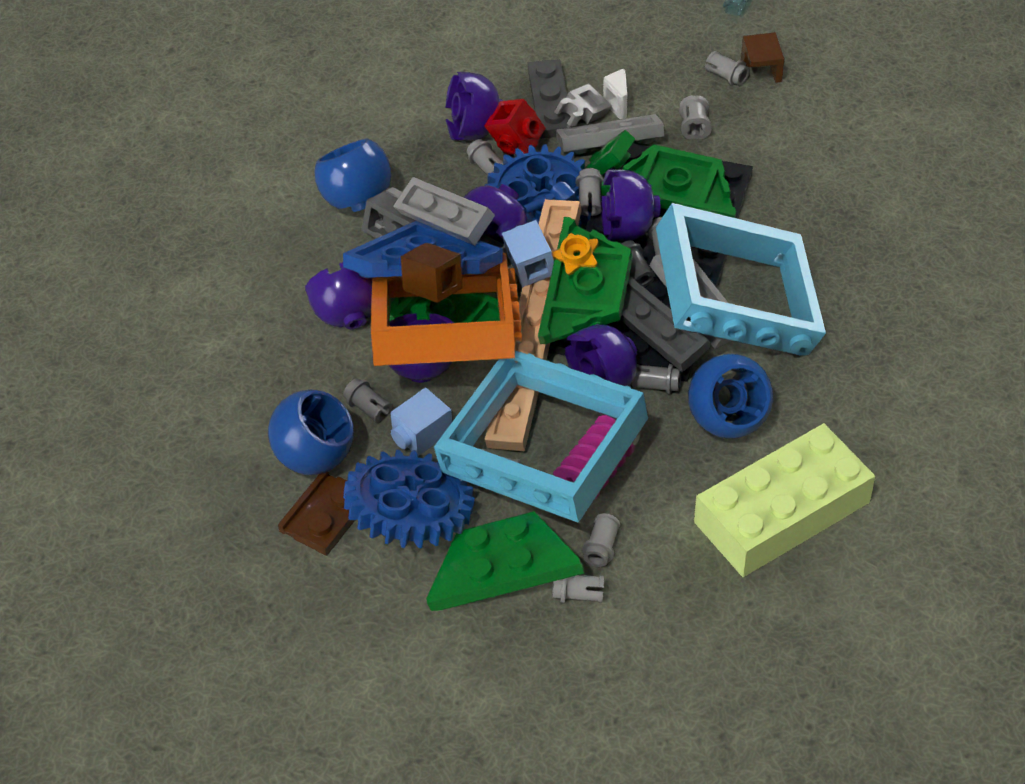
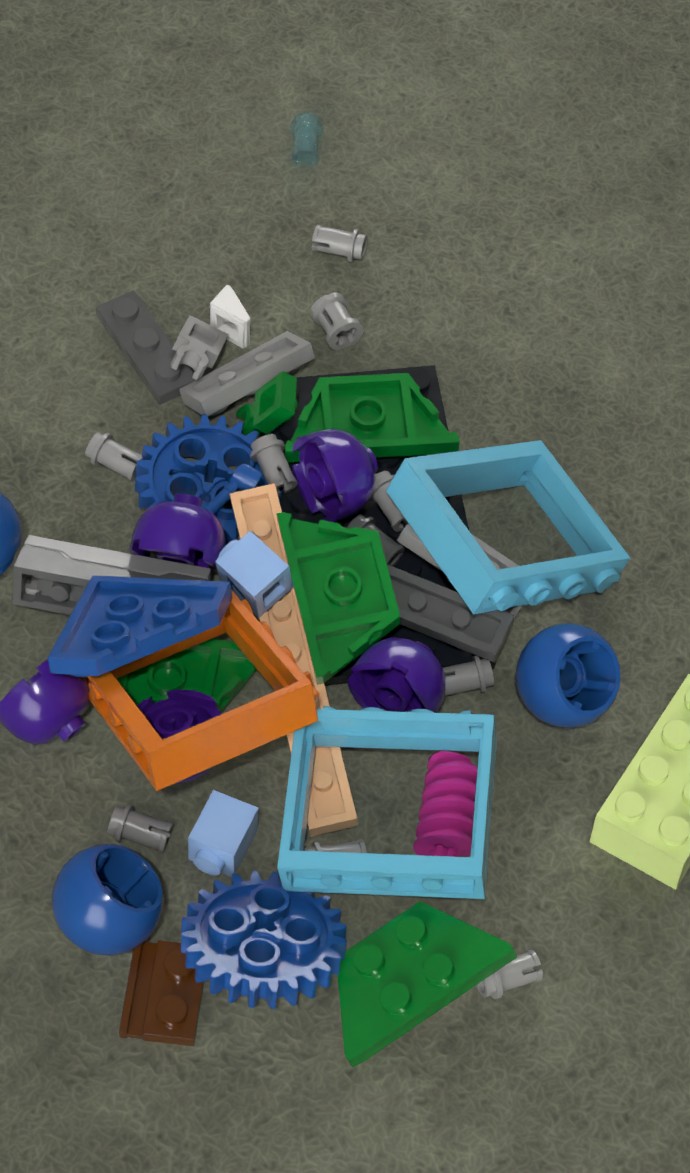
camera: 30 degrees left, 5 degrees up
(431, 272) = (169, 645): reddish brown panel -> none
(444, 211) = (131, 554): light grey plate -> none
(472, 103) = (64, 385): dark purple cylinder -> none
(515, 126) = (134, 403): red brick -> none
(573, 244) = (312, 545): light orange plate -> none
(598, 548) = (507, 918): light grey pin -> none
(763, 51) = (377, 211): reddish brown panel -> none

